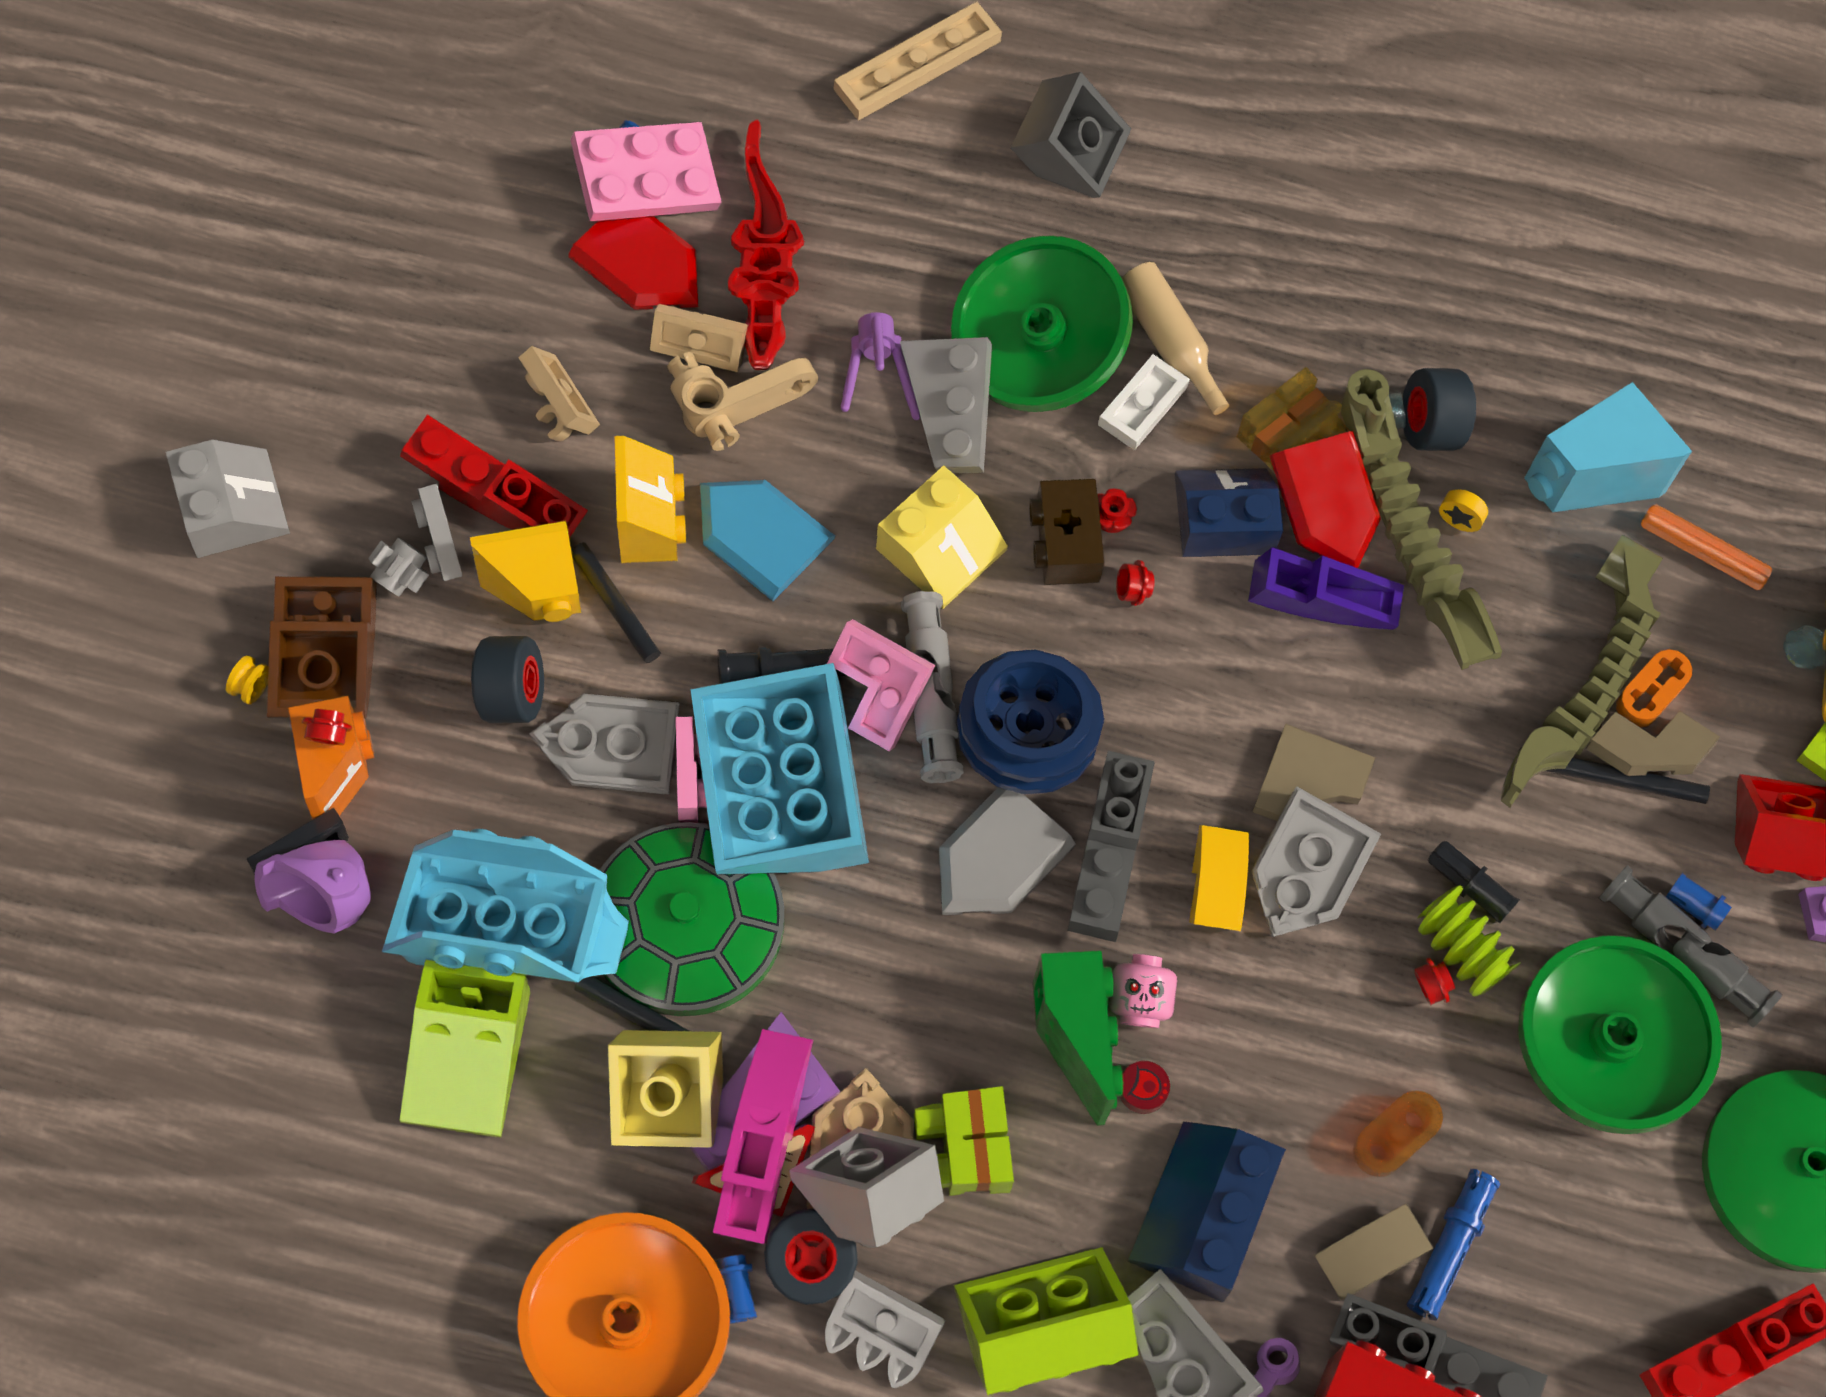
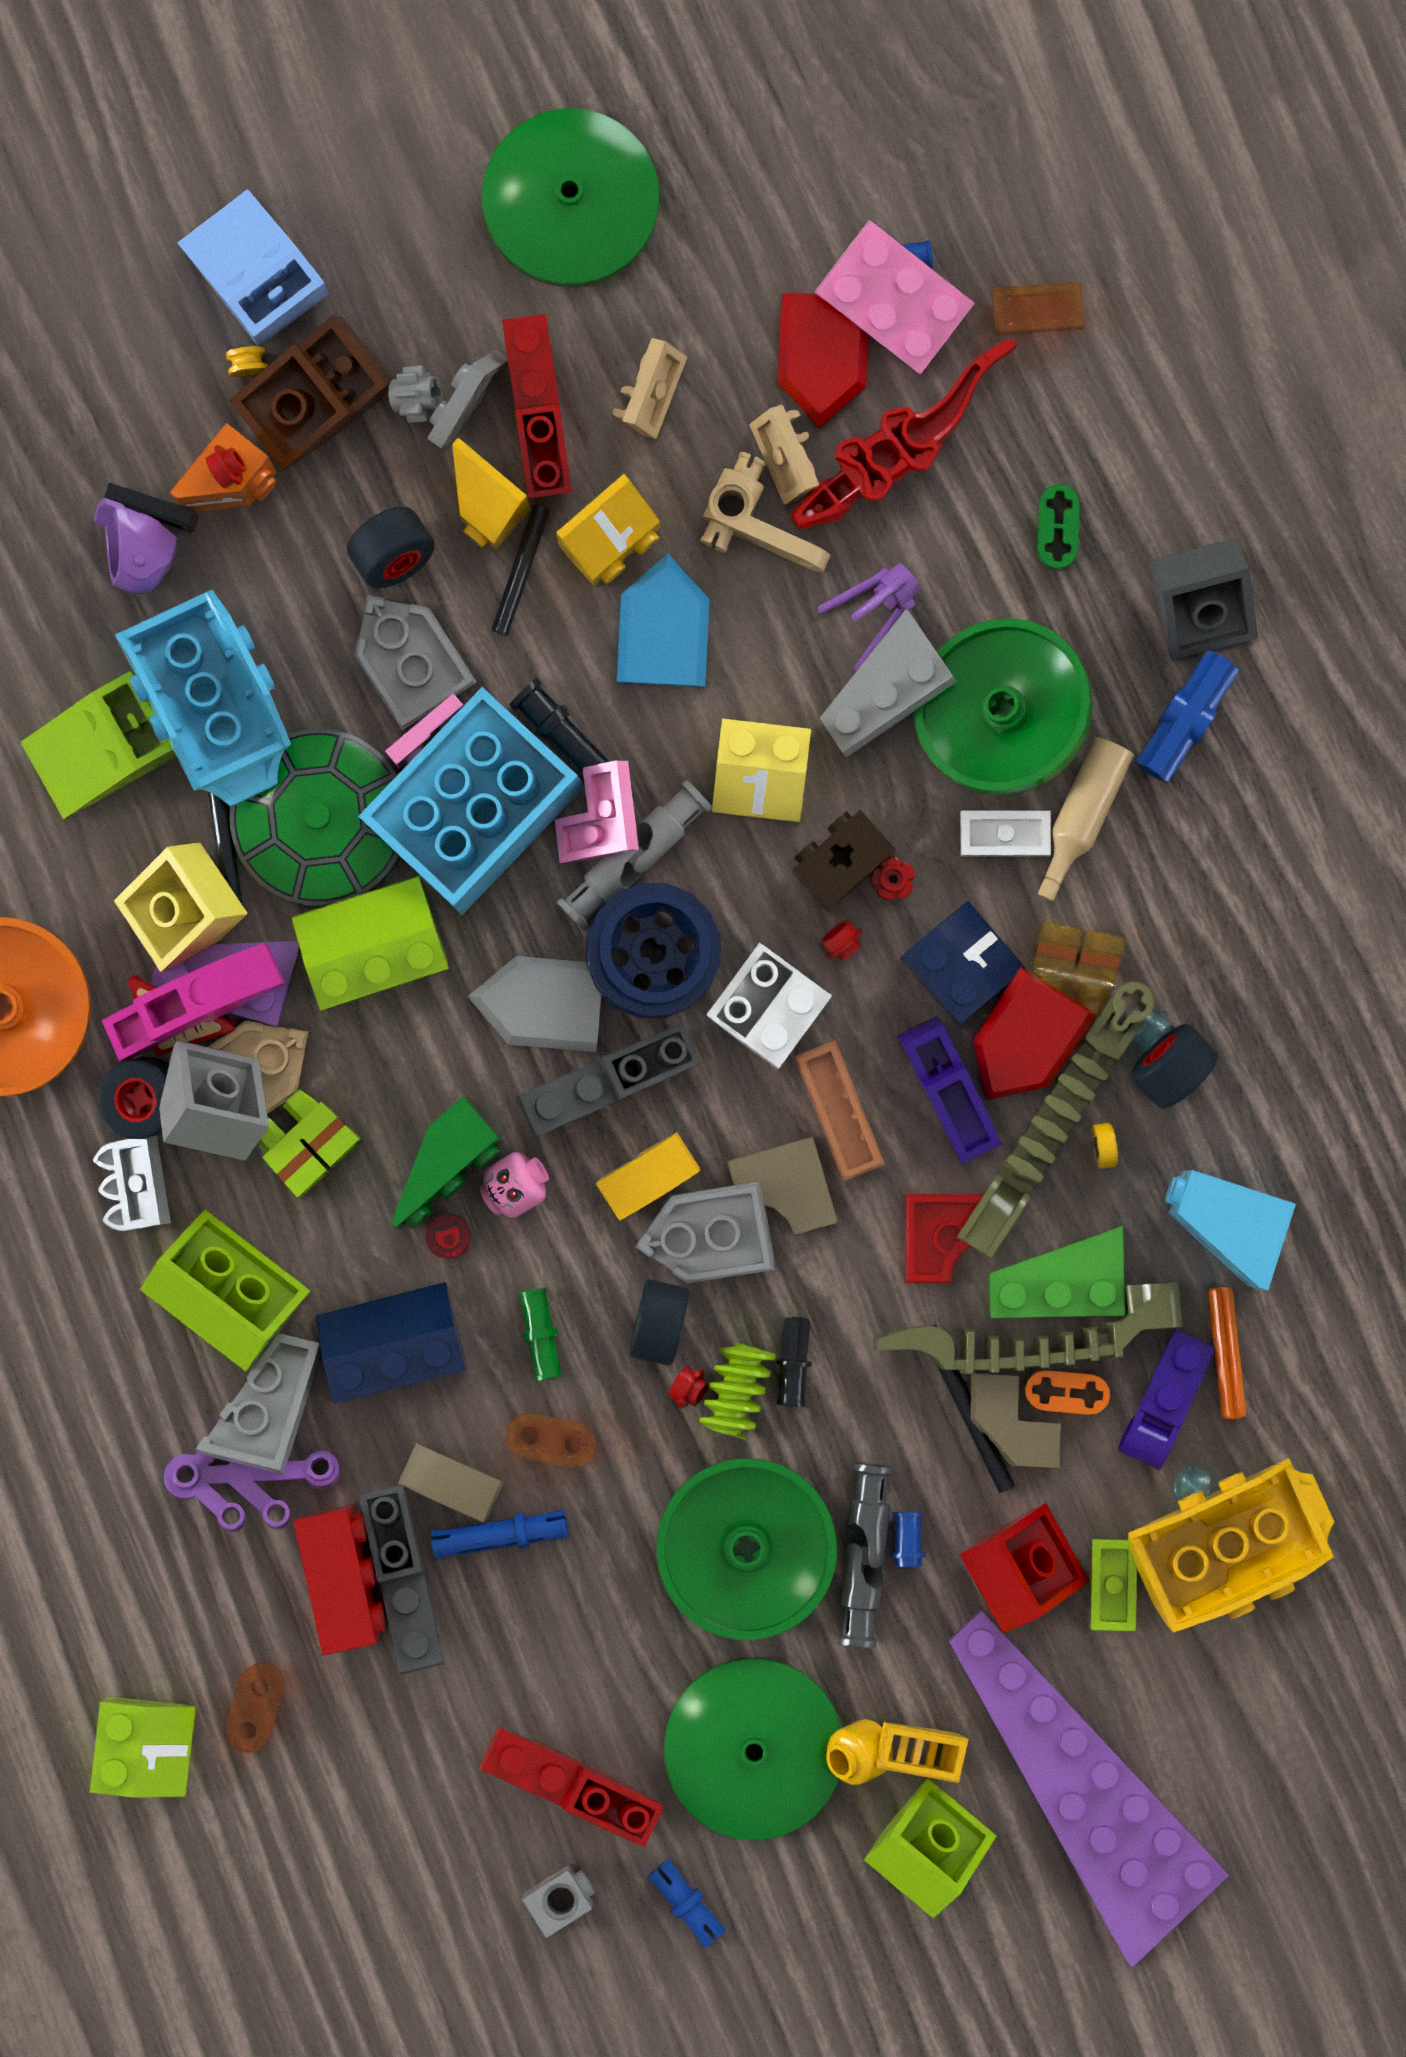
camera: 60 degrees right, 20 degrees up
(178, 612) = (254, 268): none -> light blue slope
(226, 495) = (373, 220): light grey slope -> none
(349, 346) = (577, 237): none -> green dish
(736, 1279) = (89, 1058): blue pin -> none
(743, 89) = (1037, 308): none -> clear orange plate
(833, 950) = (369, 943): none -> lime slope
(917, 60) = (1179, 423): tan plate -> none
(924, 199) = (1046, 527): none -> green beam
(1153, 670) = (769, 1006): none -> white slope
(1156, 212) = (1187, 716): none -> blue piece
(1279, 688) = (839, 1110): none -> nougat plate
(1294, 1072) = (540, 1334): none -> green pin
(1361, 956) = (659, 1322): none -> black wheel
(1442, 692) = (931, 1234): none -> red tile
(1556, 625) = (1065, 1282): none -> bright green wing
(1736, 638) = (1166, 1400): none -> dark purple plate

